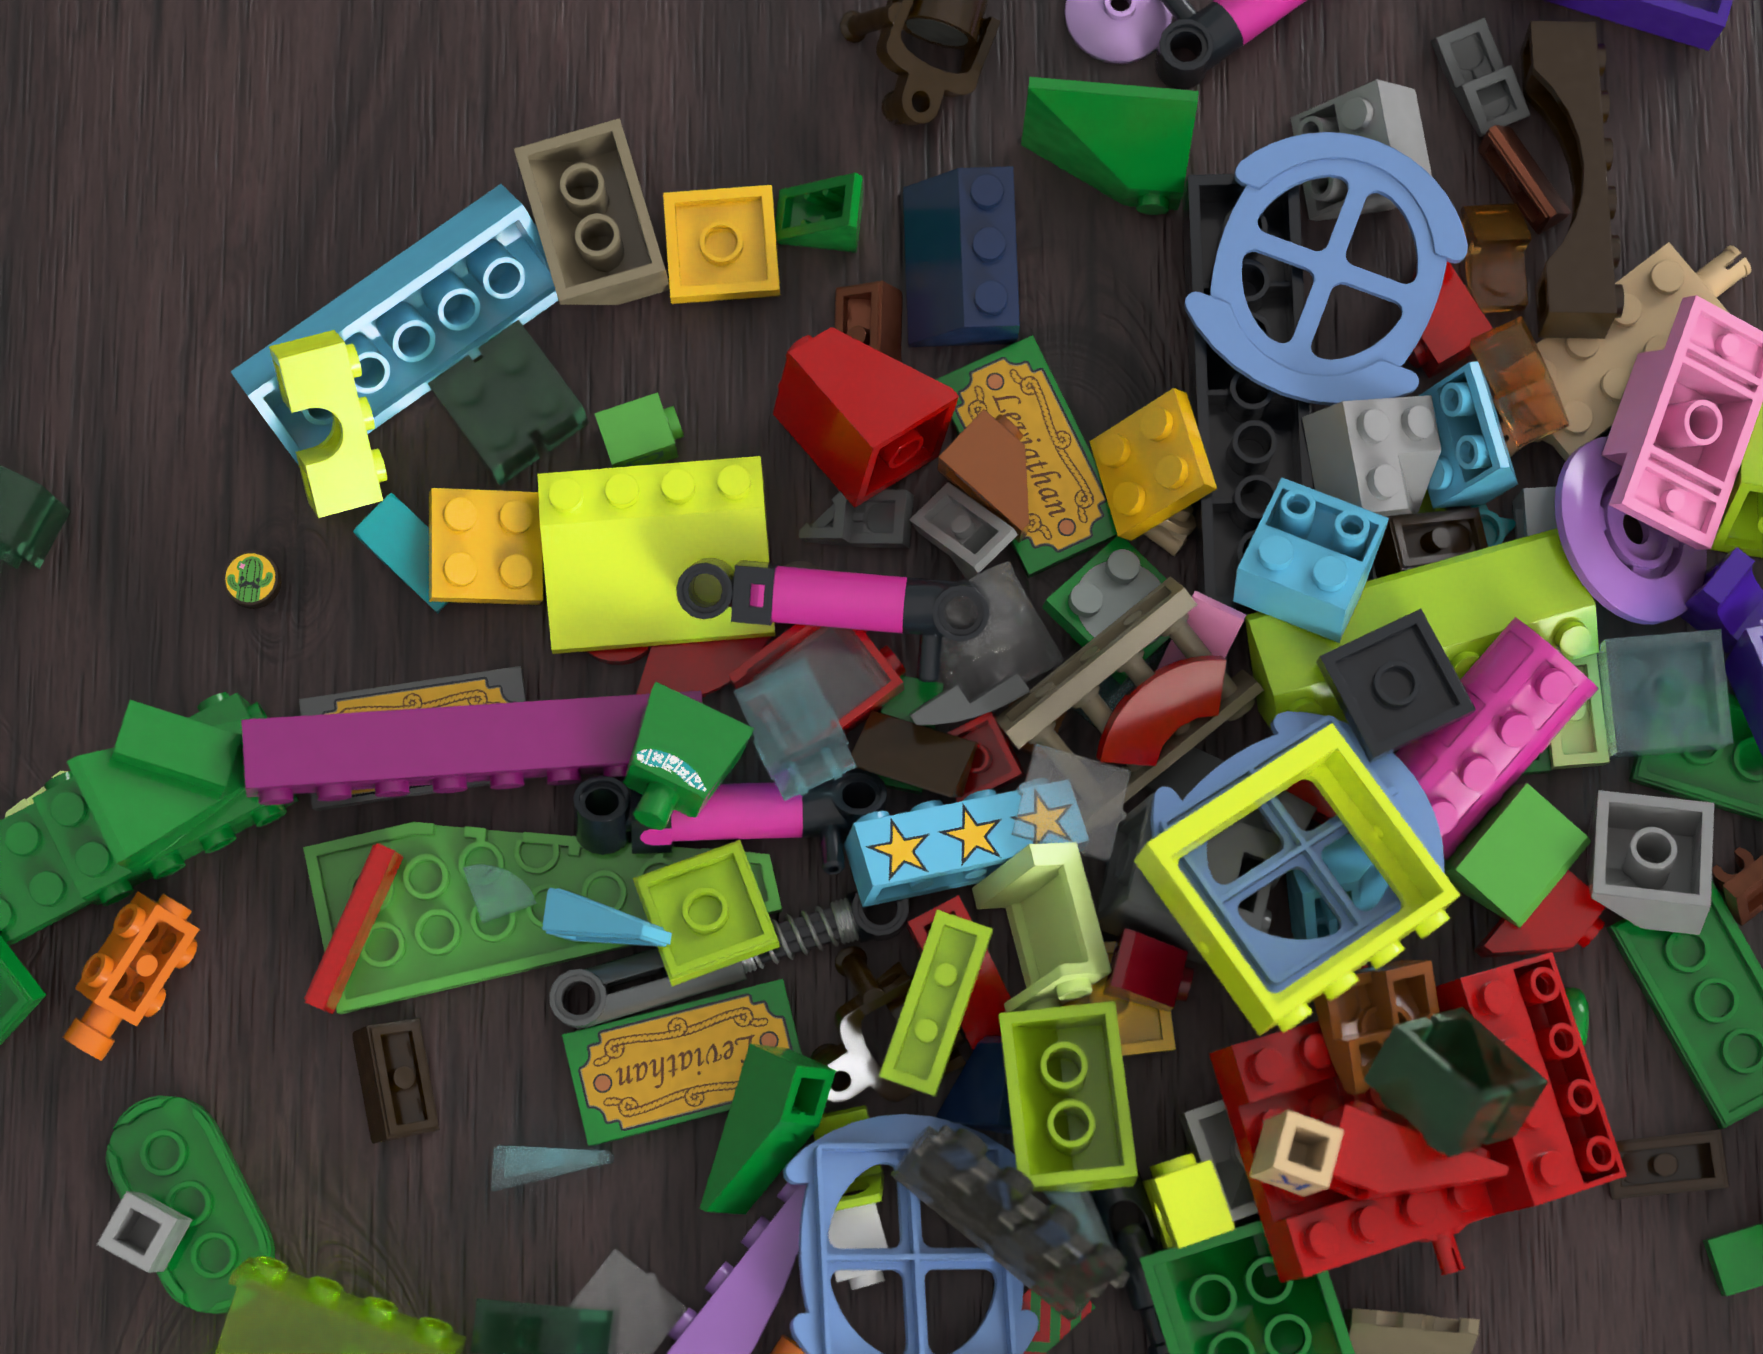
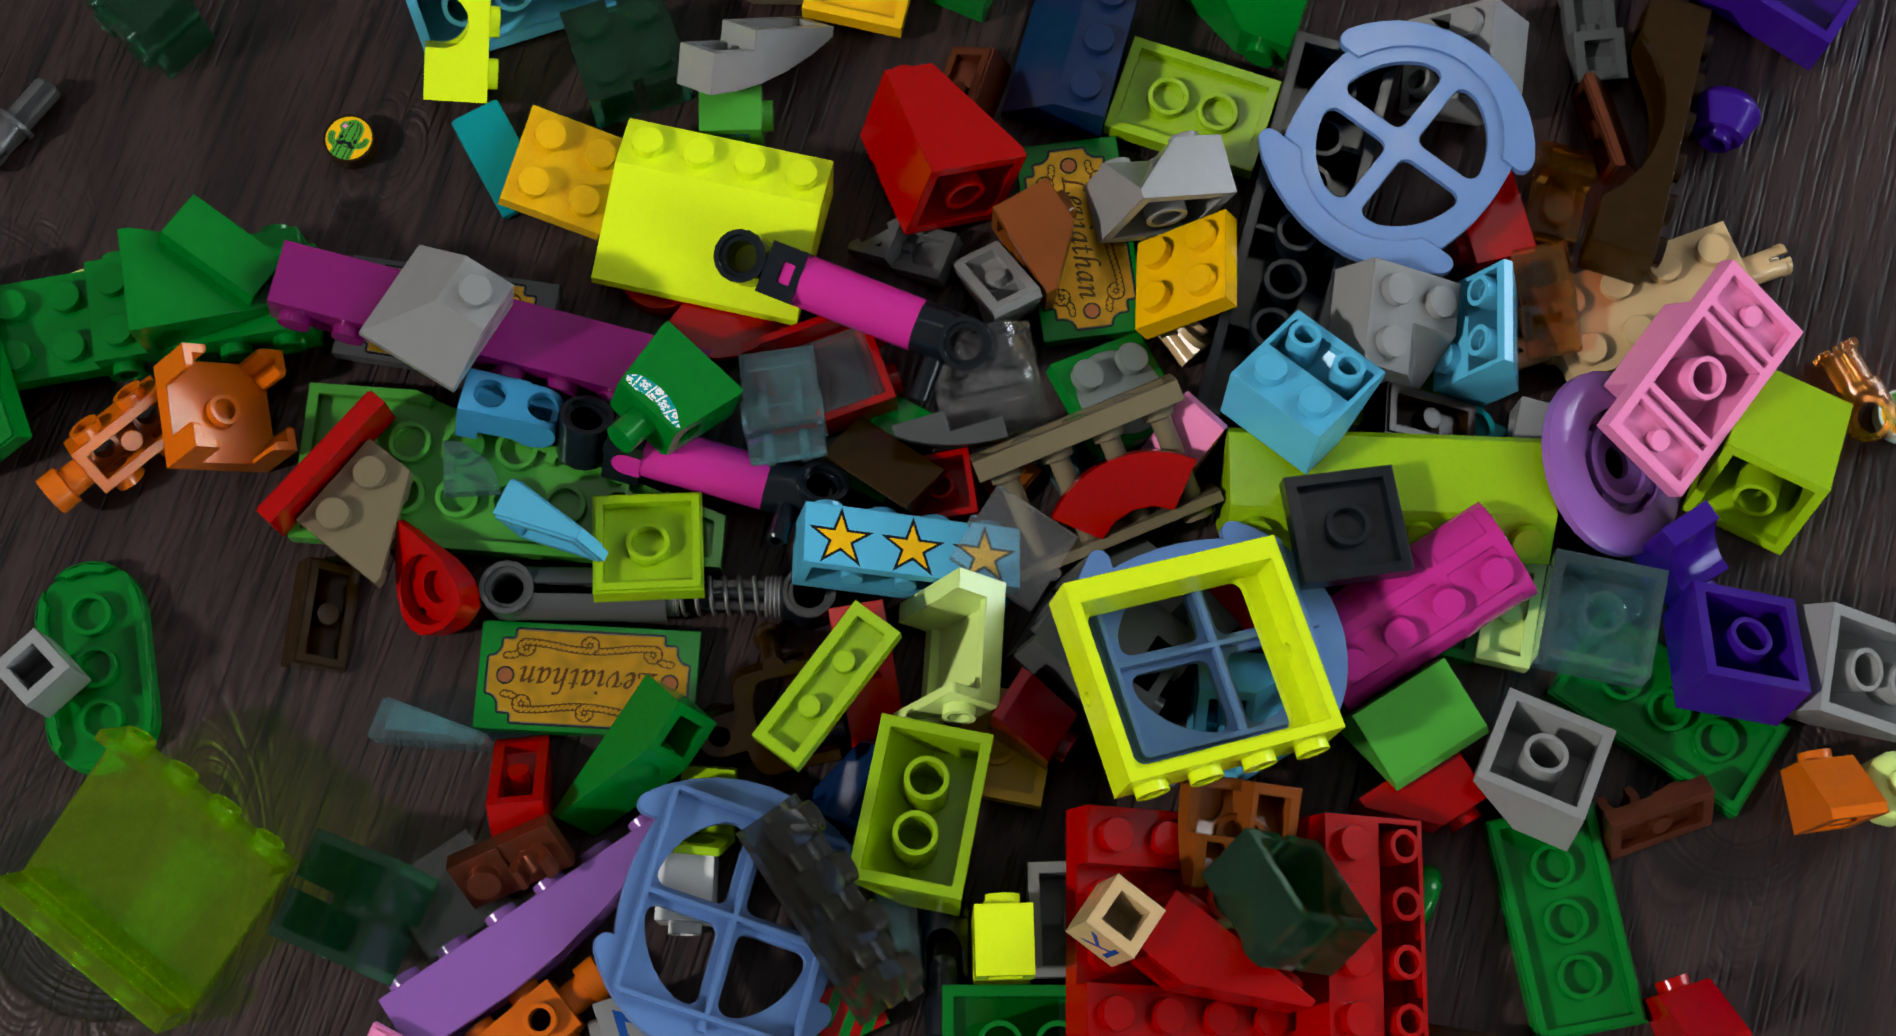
camera: 15 degrees right, 5 degrees down
(224, 908) = (220, 411): none -> orange panel
(404, 964) = (361, 510): none -> dark tan wing
(422, 747) = (439, 314): none -> light grey slope
(500, 1017) = (432, 585): none -> red piece
(518, 816) = (508, 409): none -> dark azure leg
(637, 365) = (749, 52): none -> light grey slope
(662, 1200) = (520, 782): none -> red slope
(676, 1269) = (510, 861): none -> copper plate
(1101, 281) = (1179, 92): none -> lime plate
(1101, 386) = (1158, 195): none -> light grey slope
(1639, 131) = (1724, 118): none -> dark purple cone

